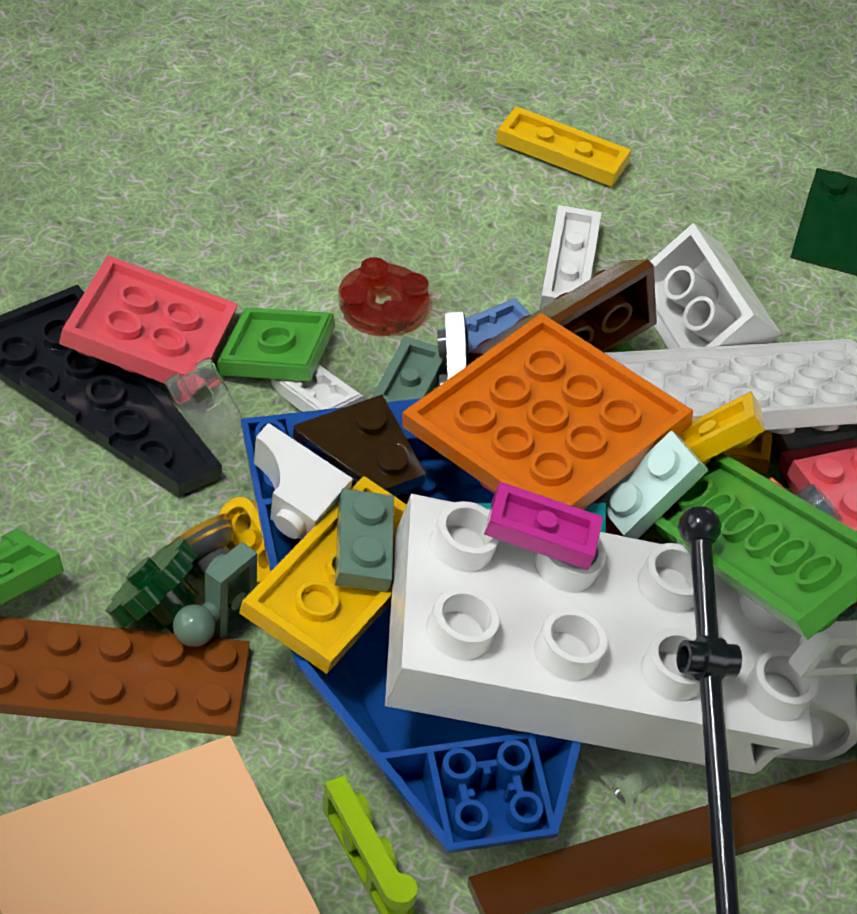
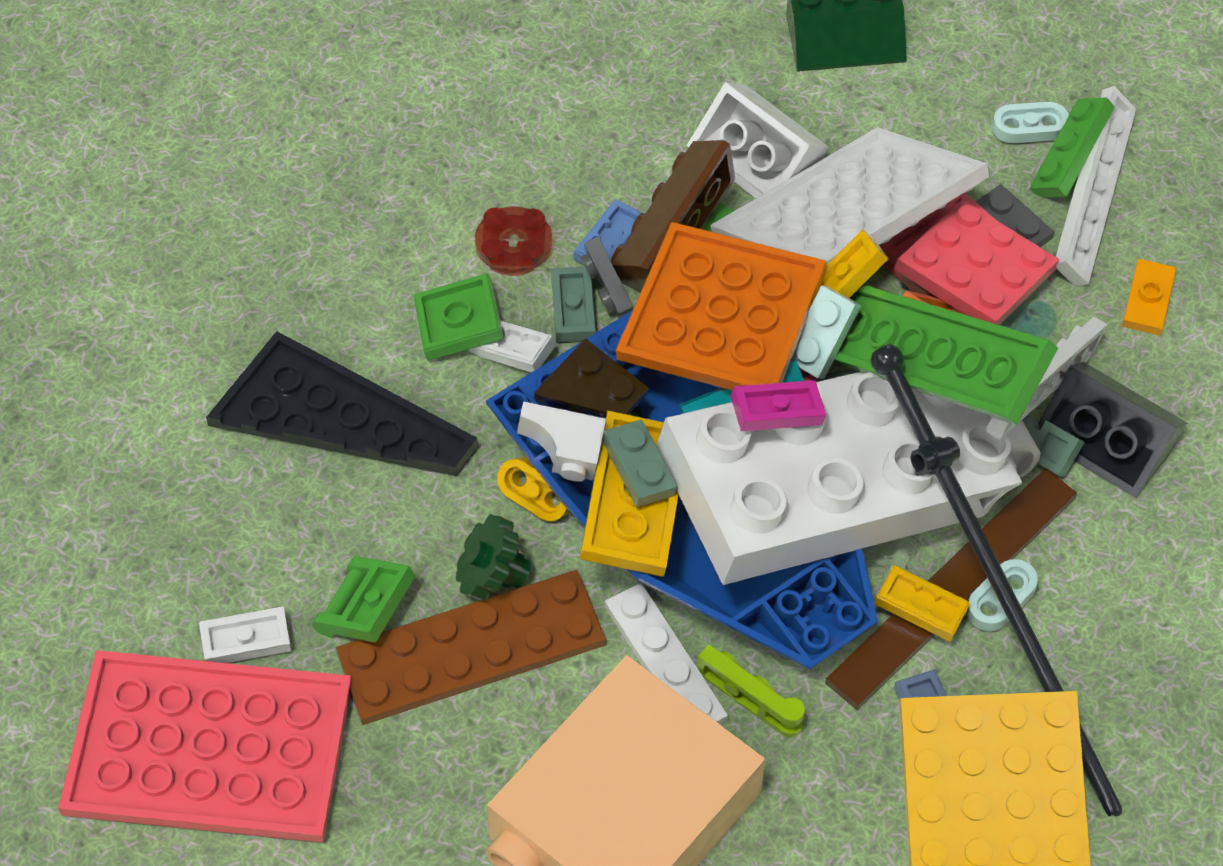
camera: 20 degrees left, 10 degrees up
(146, 321) = (356, 343): coral plate -> none
(208, 540) = (506, 504): dark grey piece -> none
(215, 418) = (448, 401): clear plate -> none
(226, 586) = (547, 551): sand green plate -> none
(294, 774) = (660, 649): none -> white plate
(563, 146) = (577, 43): yellow plate -> none
(570, 251) = (636, 144): white plate -> none
(627, 839) = (922, 603): none -> yellow plate
(748, 854) = (985, 596): none -> light aqua plate
(817, 498) = (937, 292): clear light blue tile -> none

